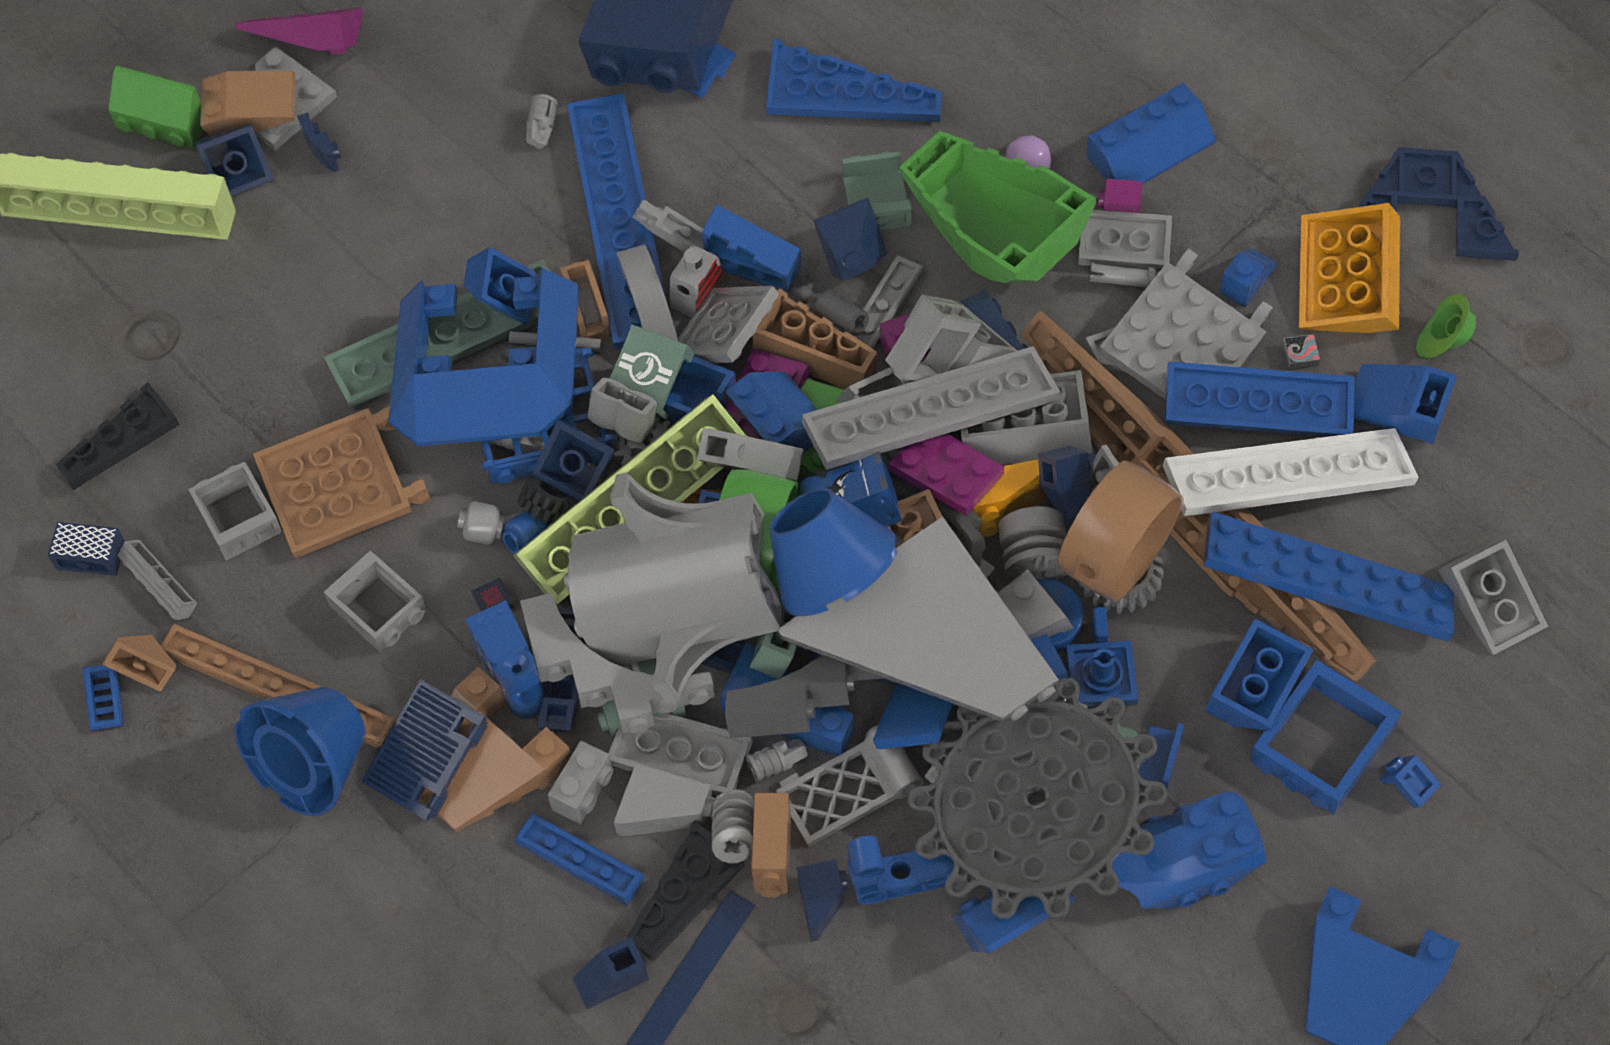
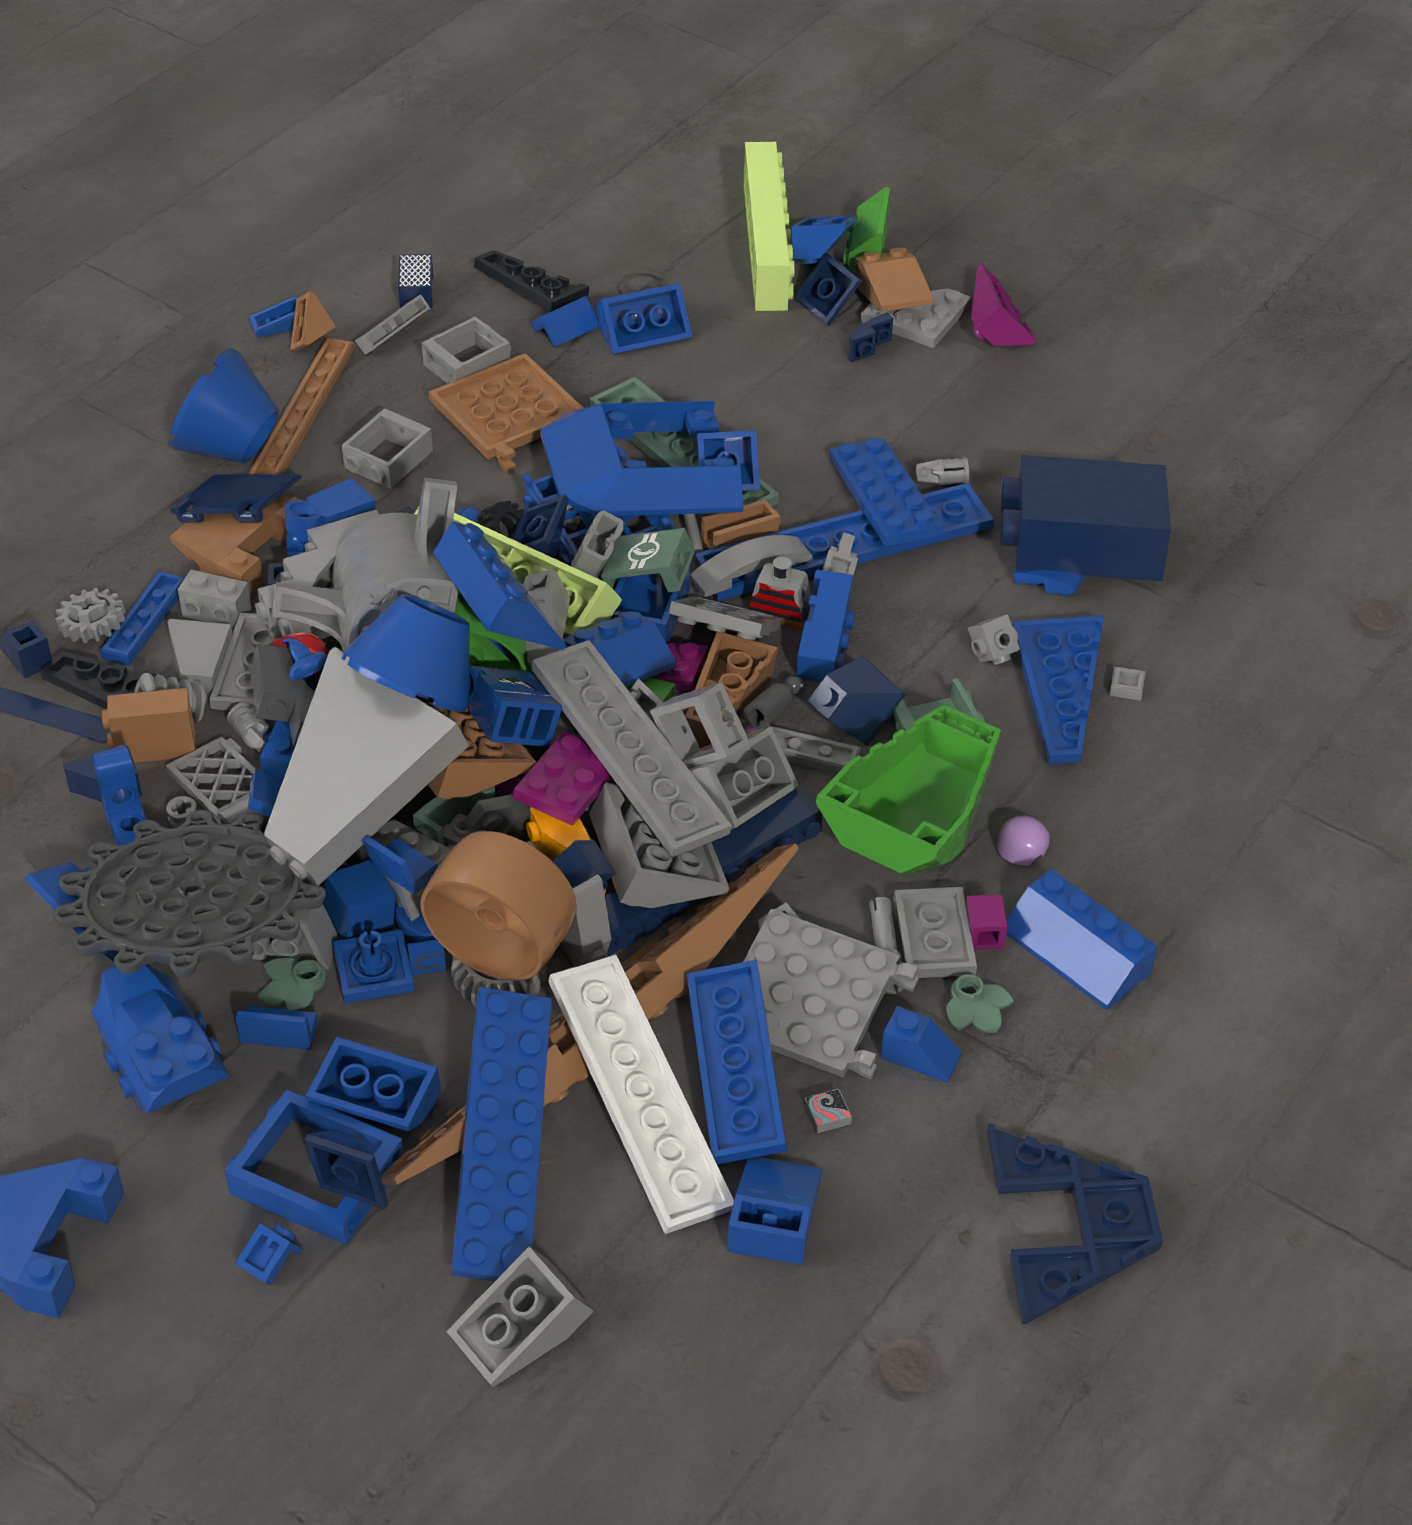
camera: 75 degrees right, 15 degrees down
(162, 140) = (818, 236): none -> blue slope
(199, 411) = (567, 321): none -> blue panel
(225, 337) = (643, 318): none -> blue slope
(481, 522) = (478, 493): light grey head -> none
(562, 901) = (90, 615): none -> light grey gear
(565, 170) = (885, 492): none -> blue plate
(740, 673) = (307, 652): none -> blue hair
(763, 466) = (492, 587): none -> blue slope
(790, 124) = (994, 639): none -> light grey brick
(852, 43) = (1127, 683): none -> light grey tile
(882, 825) = (179, 804): none -> light grey bush
(1046, 607) = (400, 863): none -> blue panel
(1207, 227) = (979, 1007): none -> sand green plate
(1350, 270) = (943, 1139): light orange slope -> none
(1361, 688) = (346, 1166): none -> dark blue slope
(1448, 328) = (890, 1252): bright green piece -> none

